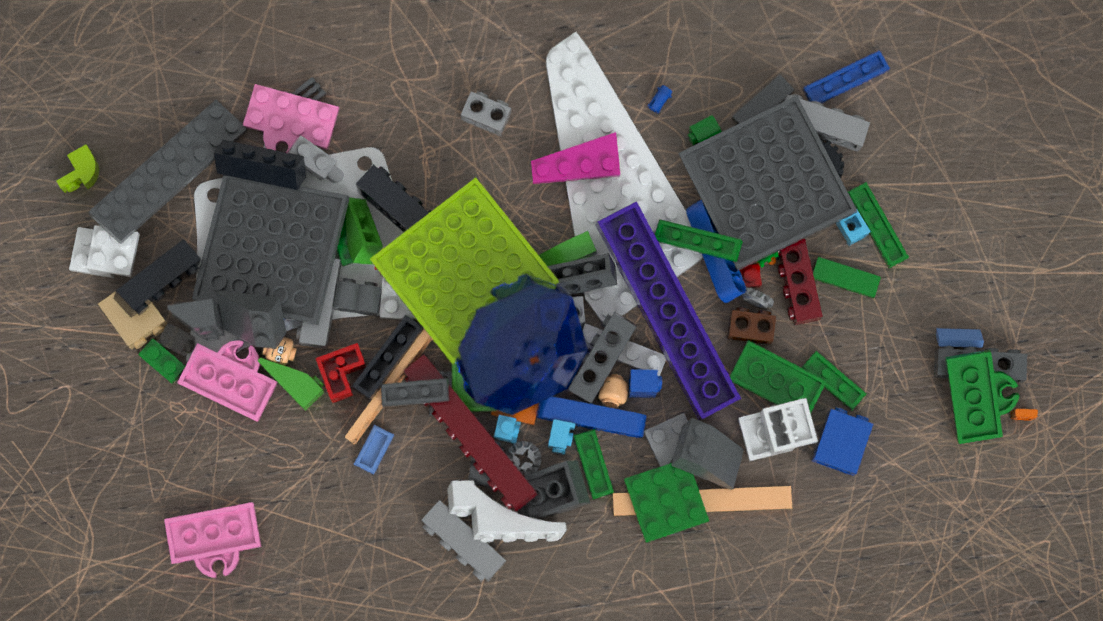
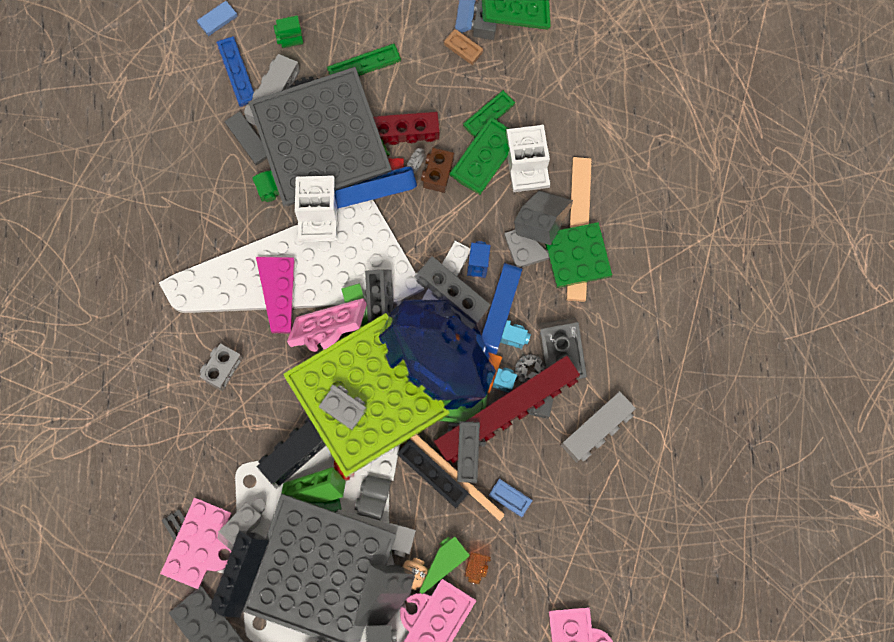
camera: 85 degrees left, 5 degrees down
(292, 418) = (476, 567): none -> clear orange brick
(336, 366) = (437, 524): red brick -> none
(444, 245) = (343, 407): none -> light grey bracket
(494, 521) = (584, 398): white arch -> none
(542, 218) = (326, 325): none -> bright pink plate
(593, 464) = (540, 312): green tile -> none
(614, 391) = (482, 285): light nougat head -> none
(660, 98) = (227, 217): blue pin -> none
(667, 311) = (418, 232): dark purple brick -> none
(678, 190) = (316, 208): none -> white bracket
(698, 240) = (361, 199): green tile -> none
(842, 441) = (541, 109): blue brick -> none
(846, 277) = (405, 92): green tile -> none
(860, 228) = (368, 79): medium azure brick -> none
(899, 130) = (288, 32): none -> green brick
(910, 46) = (217, 18): none -> medium blue tile
(916, 340) = (463, 46): none -> medium nougat plate

